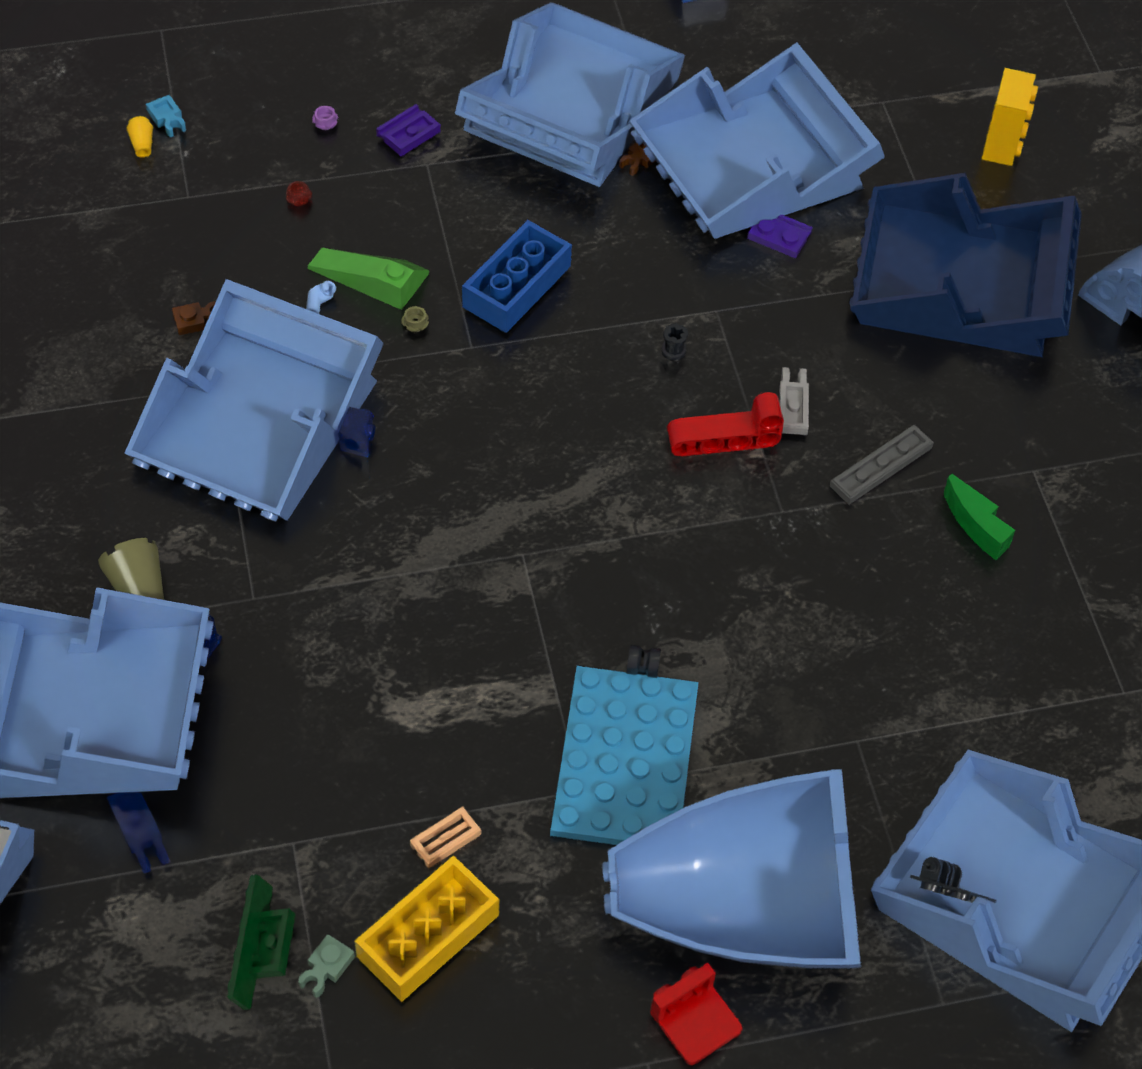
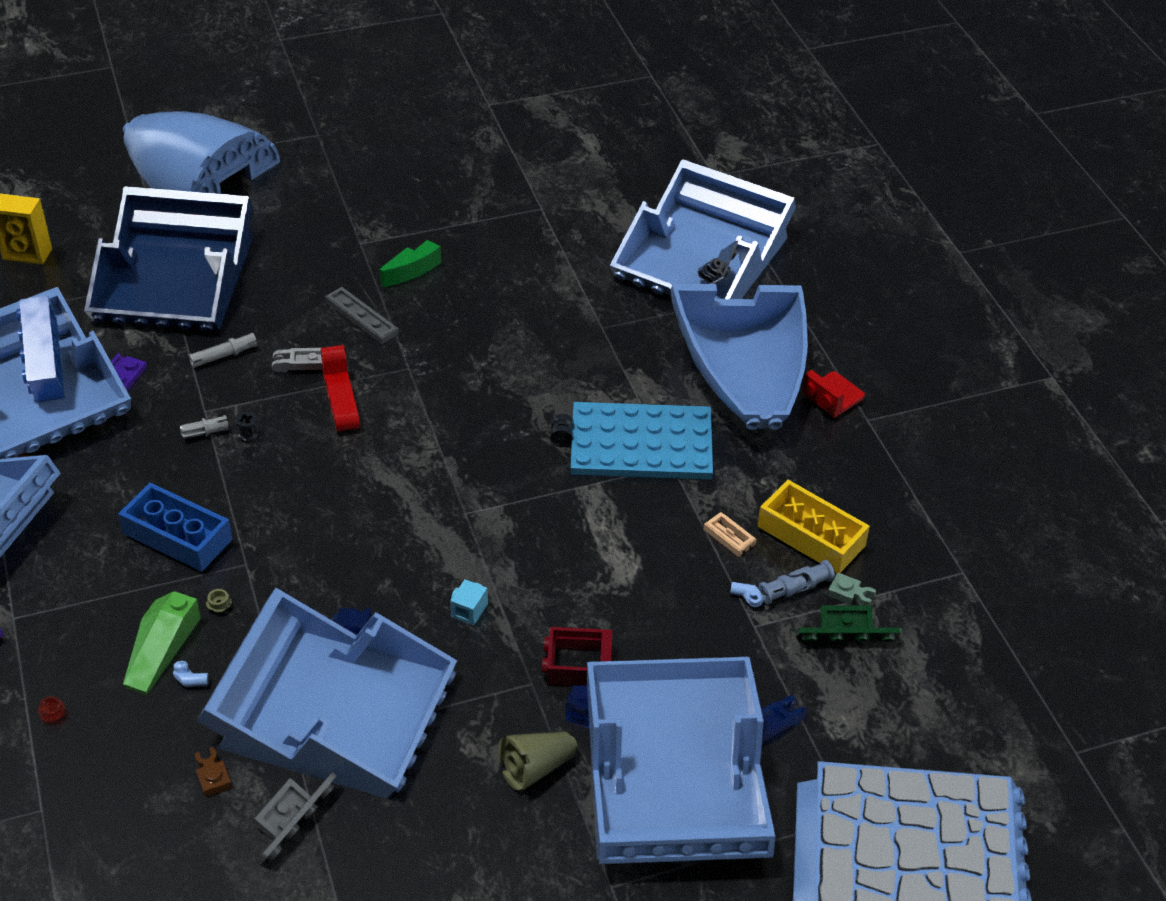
camera: 95 degrees left, 10 degrees down
(127, 366) = (284, 810): none -> dark grey bracket
(263, 664) = (573, 639): none -> dark red window
(340, 843) = (749, 592): none -> light blue arm
(344, 894) = (797, 581): none -> sand blue piece
(371, 539) = (468, 602): none -> medium azure brick
(680, 304) = (204, 427): none -> light grey axle
(788, 129) = (40, 349): none -> brick
(817, 328) = (222, 350): none -> light grey pin

